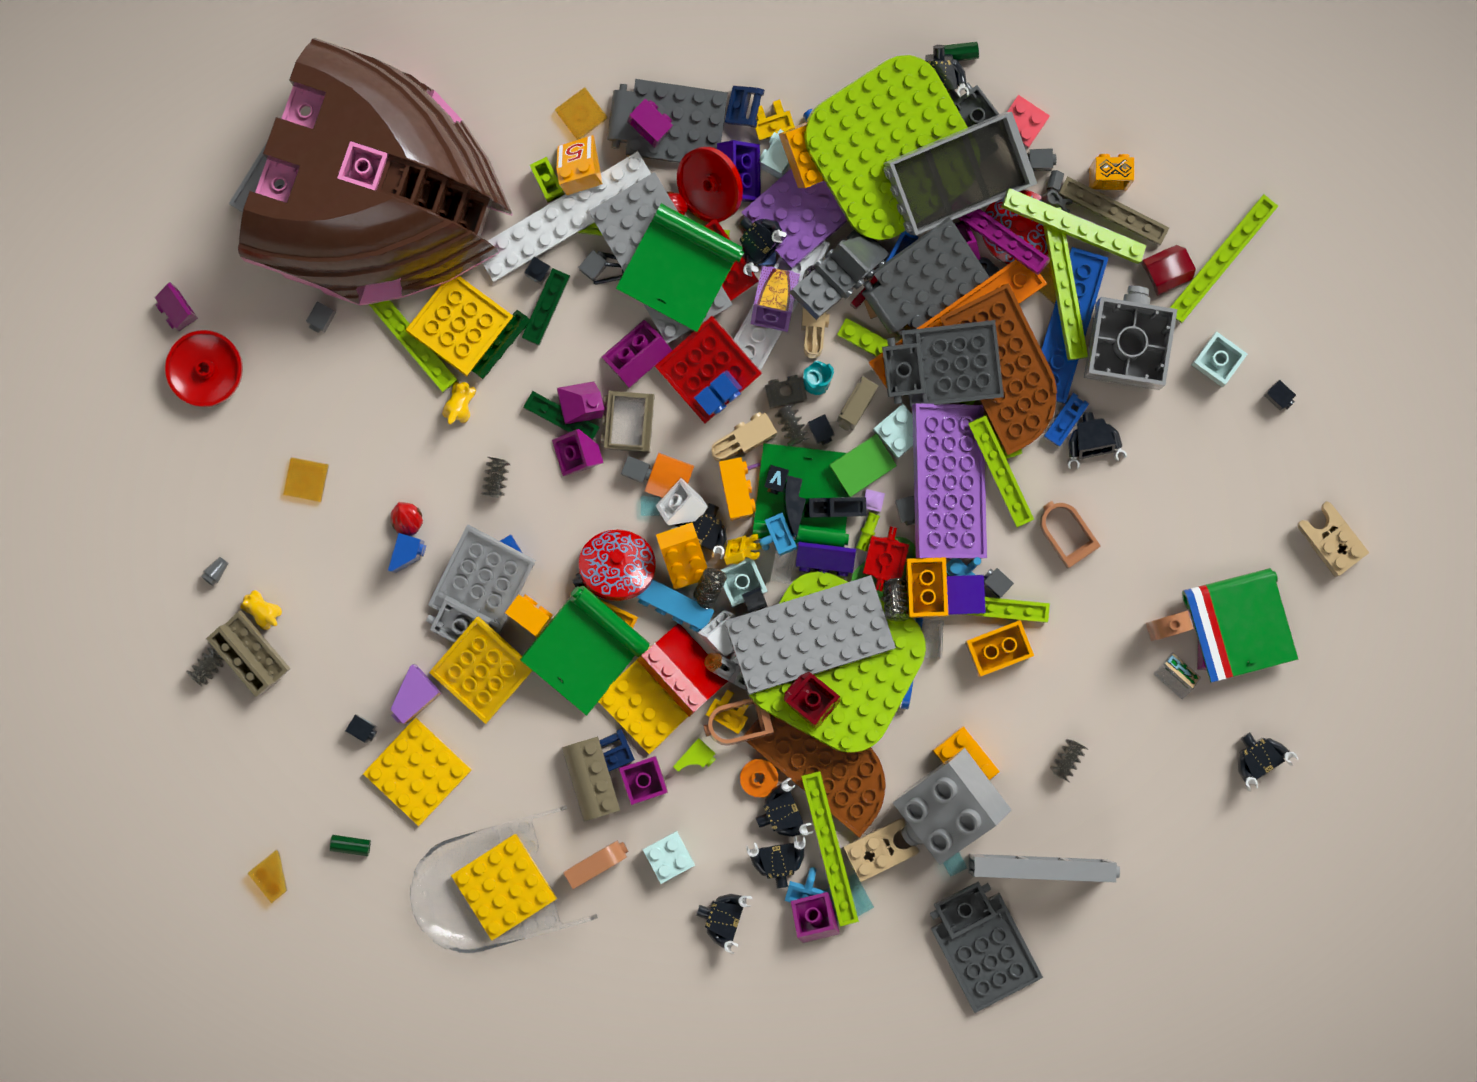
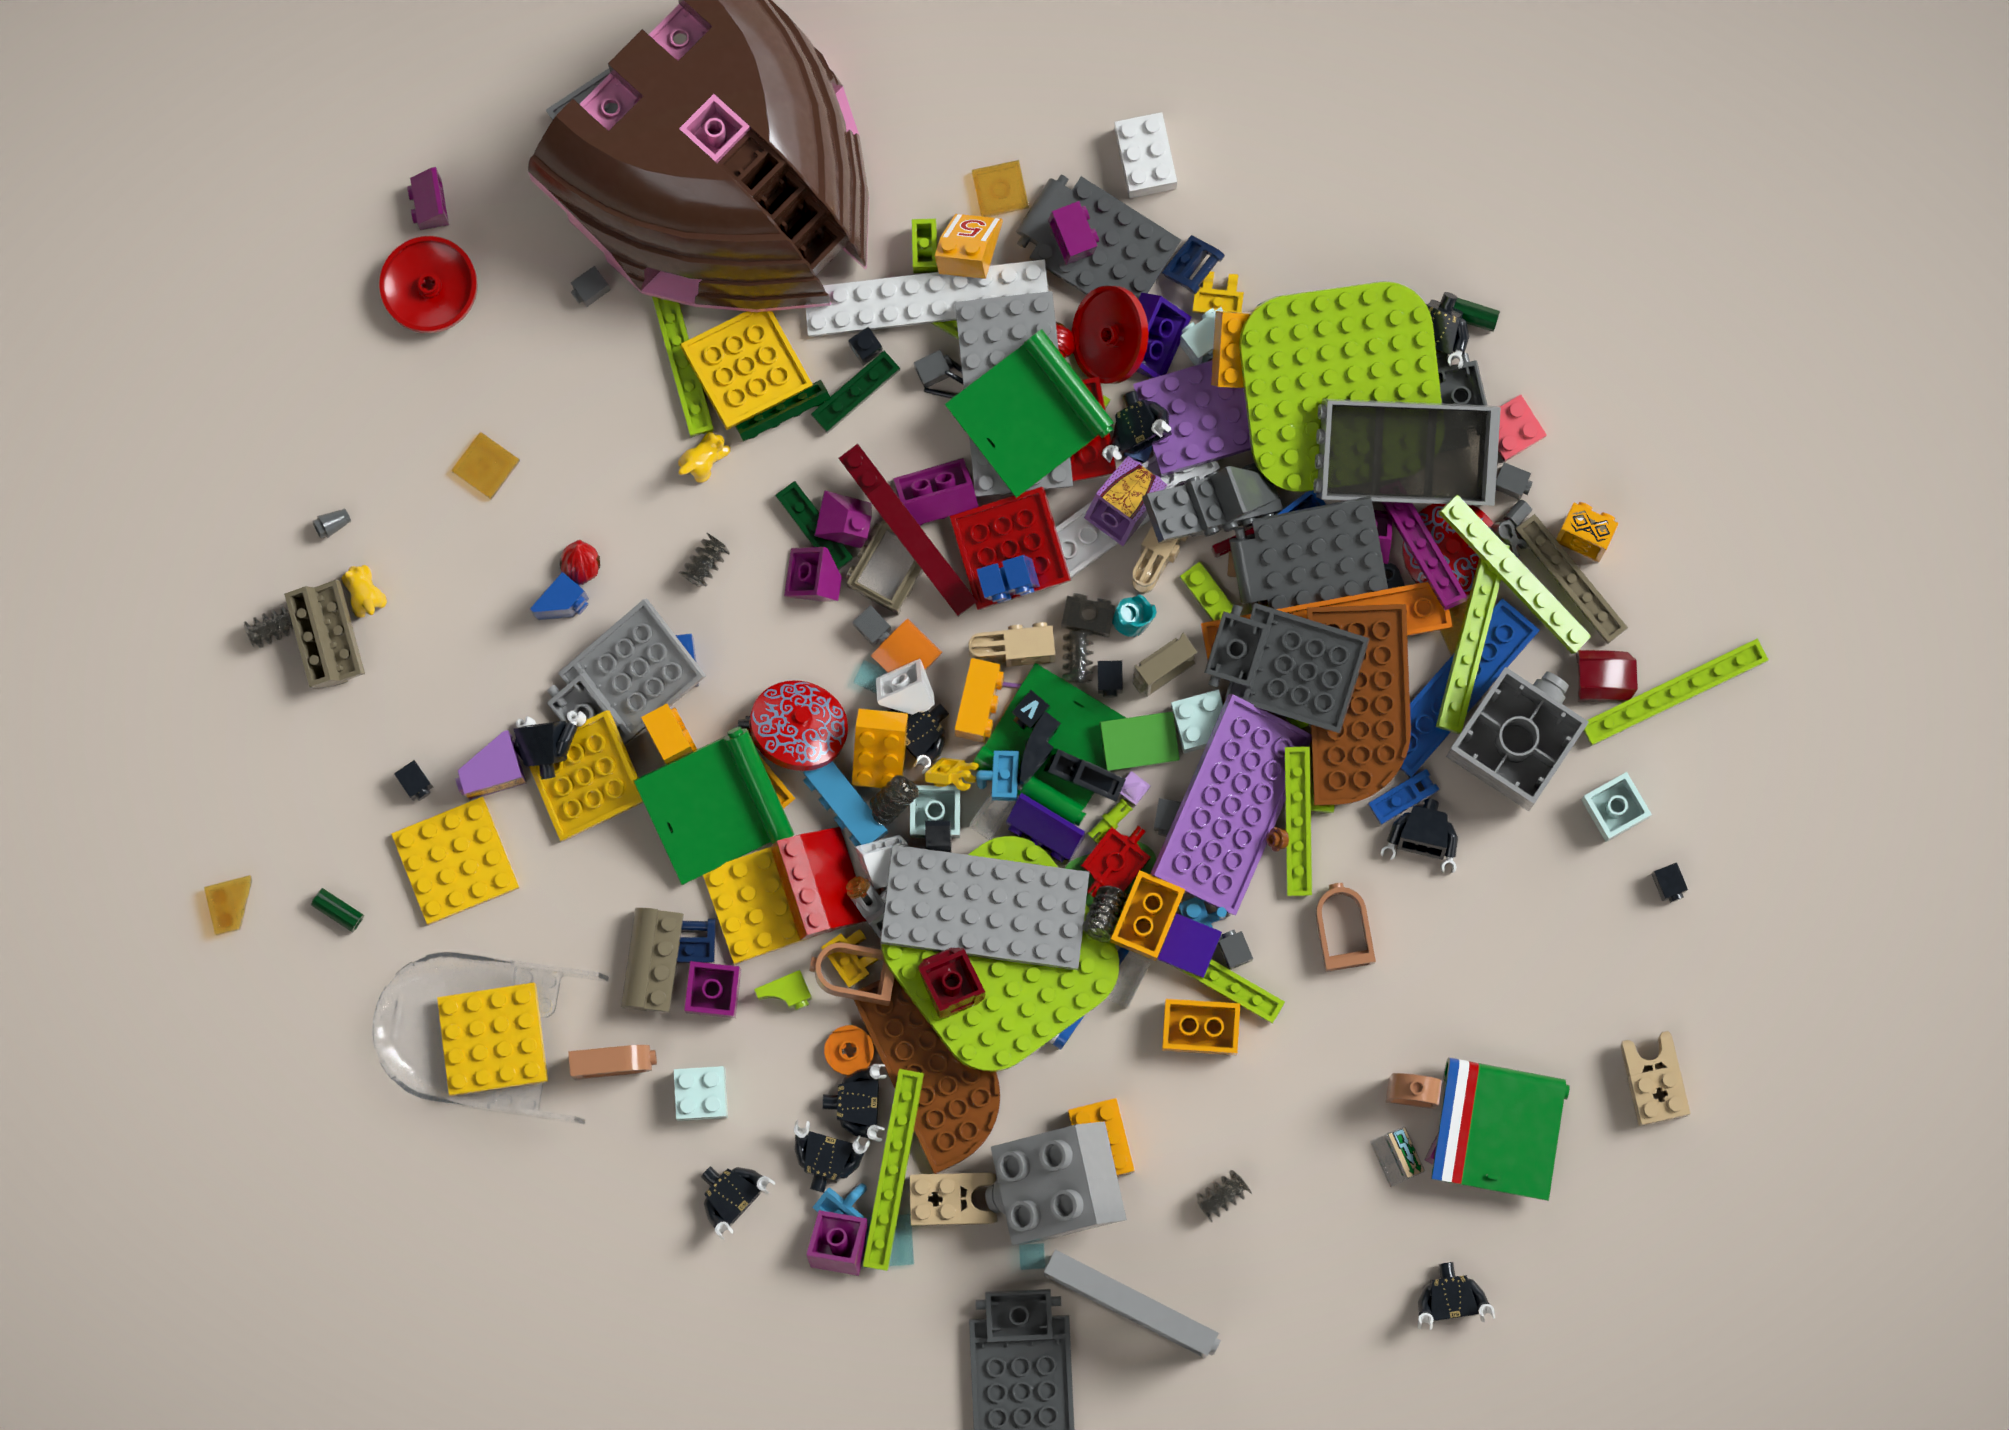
camera: 30 degrees right, 5 degrees down
(443, 660) = (546, 742): none -> black torso
(629, 389) = (907, 529): none -> dark red slope
(674, 42) = (1145, 155): none -> white brick
(992, 490) = (1277, 839): none -> dark orange plate

